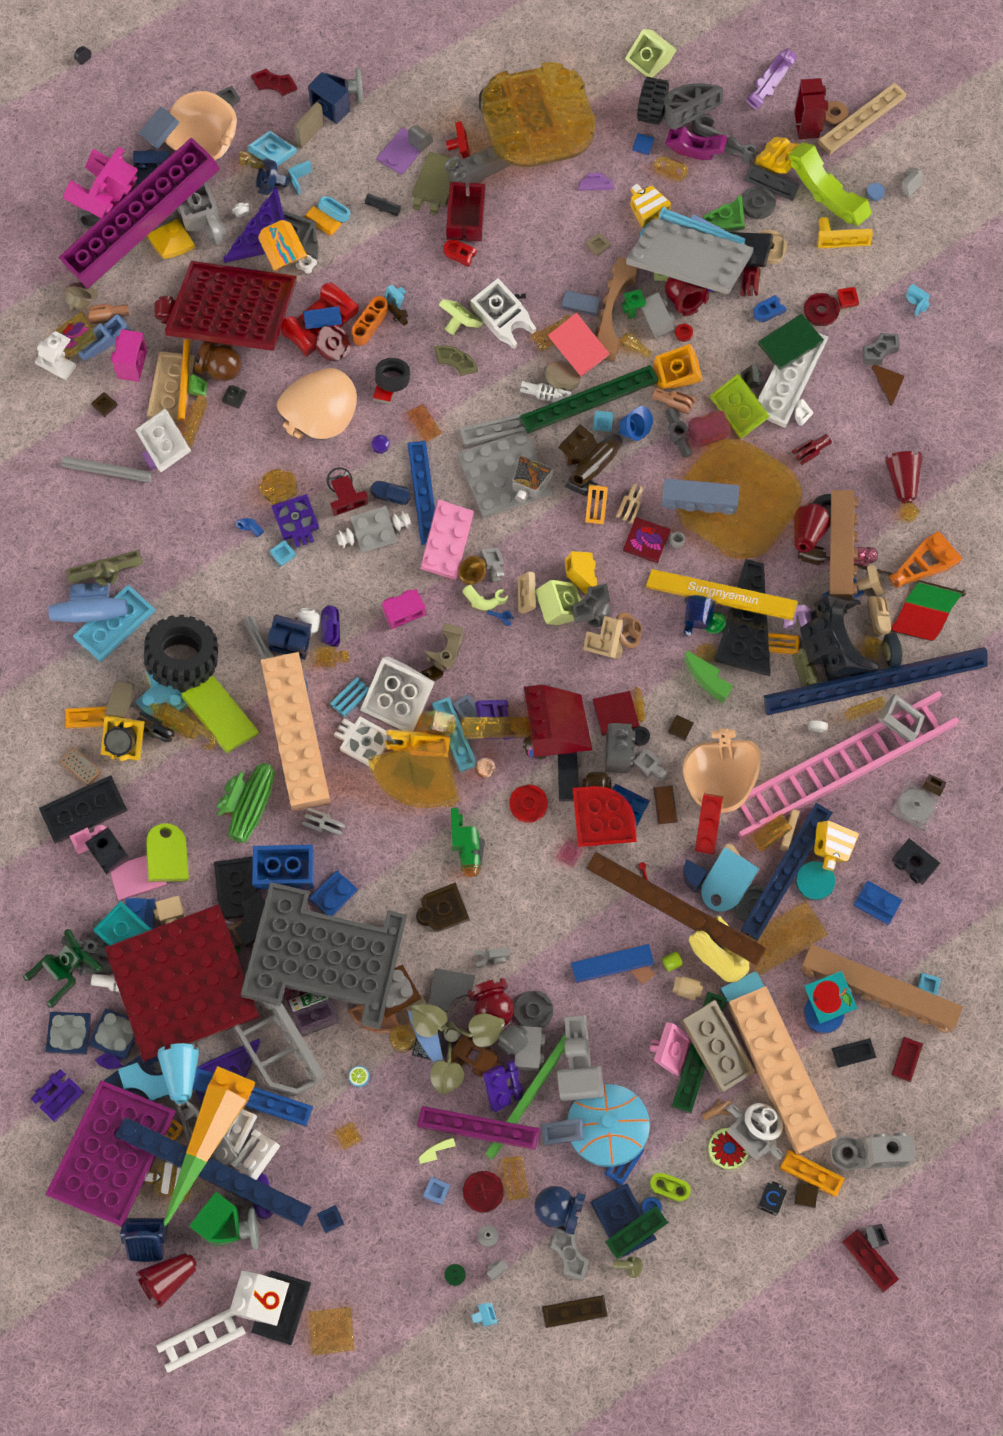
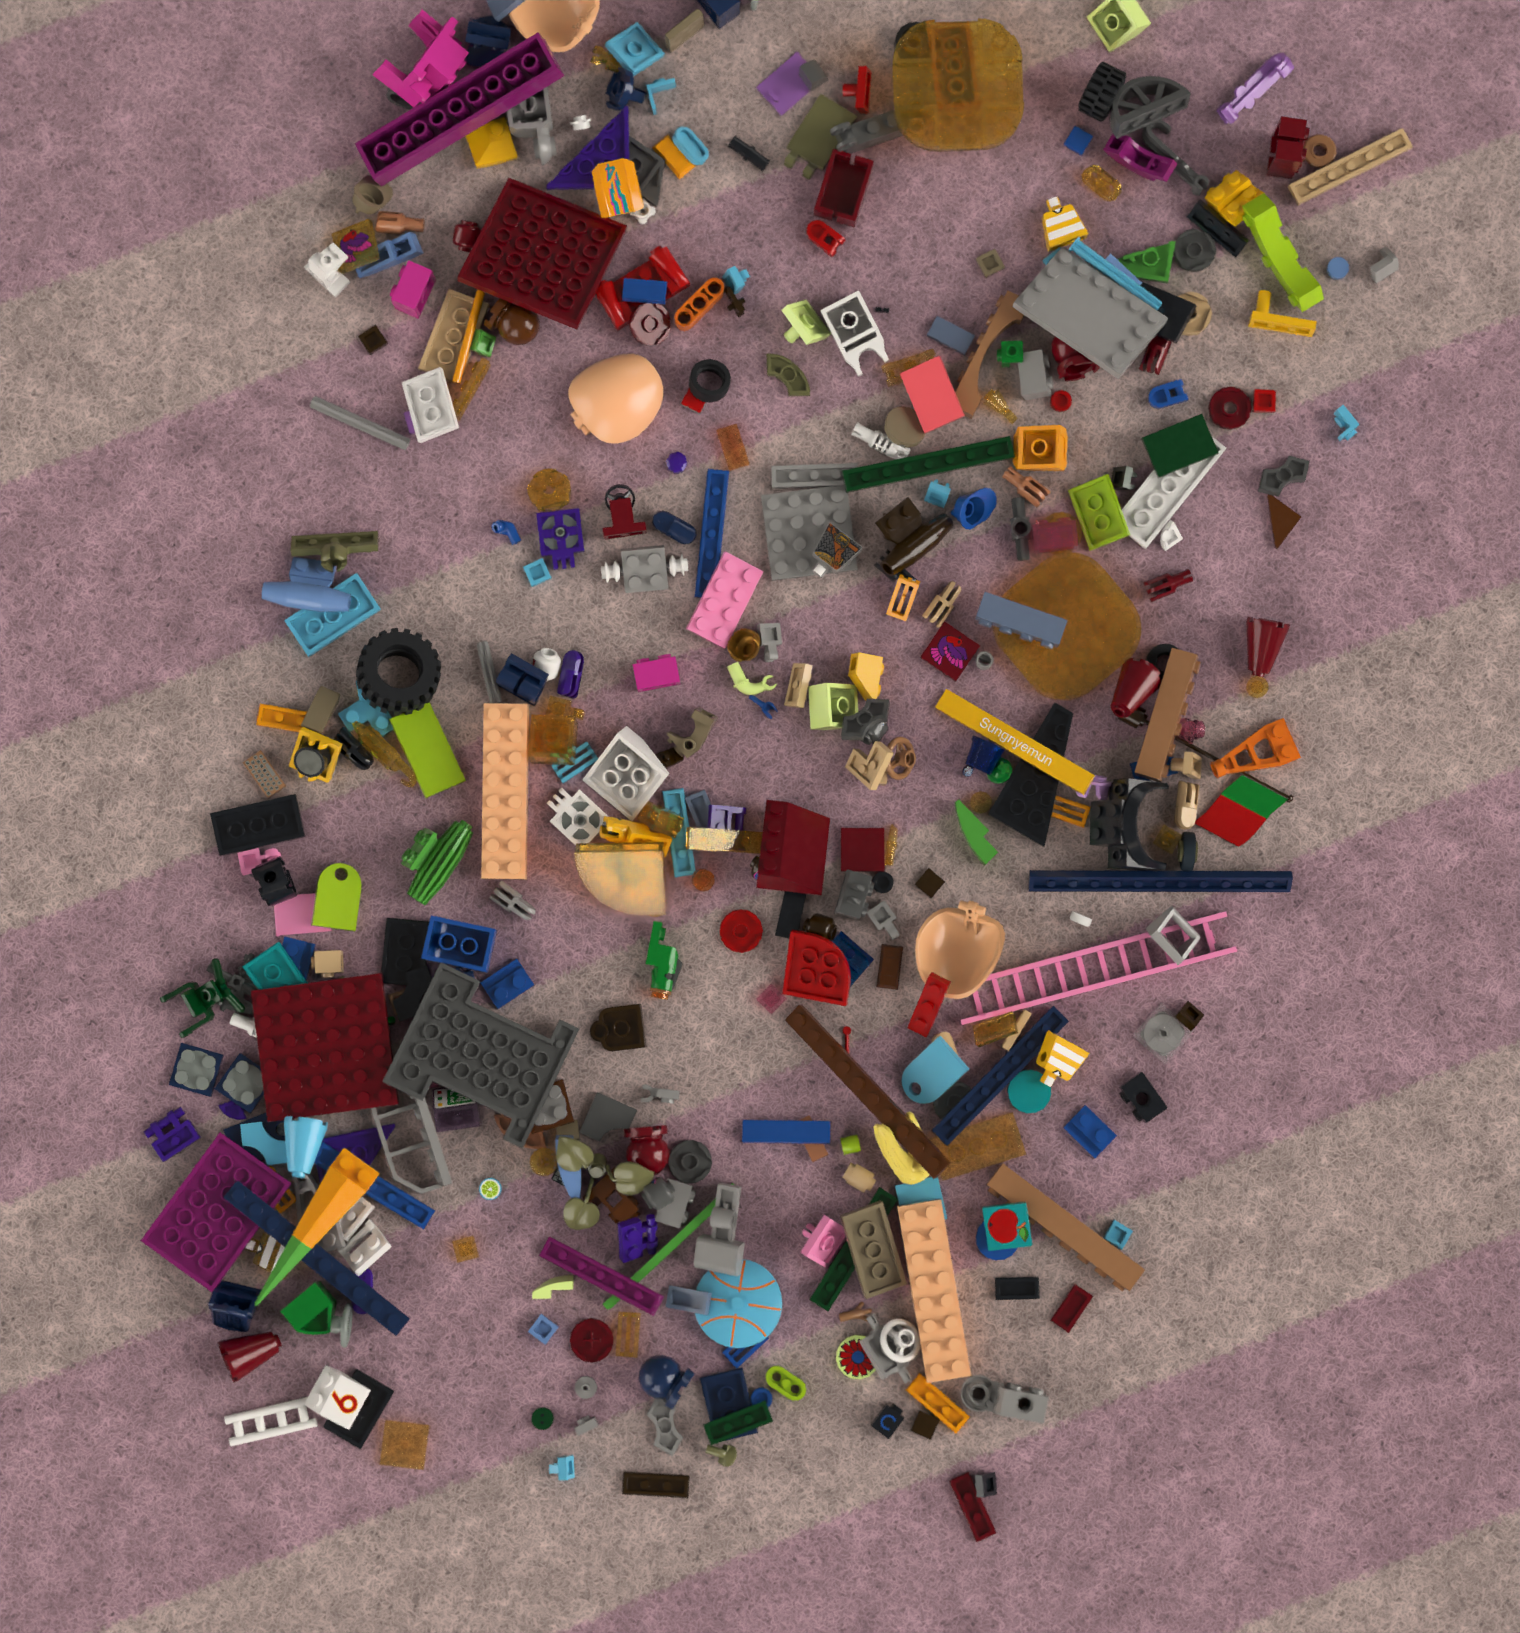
camera: 15 degrees right, 15 degrees up
(234, 396) = (523, 364): pearl dark grey tile -> none
(327, 679) = (552, 739): none -> clear yellow brick
(330, 1219) = (427, 1333): dark blue tile -> none
(596, 181) = (1009, 179): medium lavender tile -> none
(693, 875) = (898, 1055): dark blue brick -> none
(806, 671) = (1085, 853): olive hinge -> none
(864, 708) = (1138, 910): clear yellow tile -> none

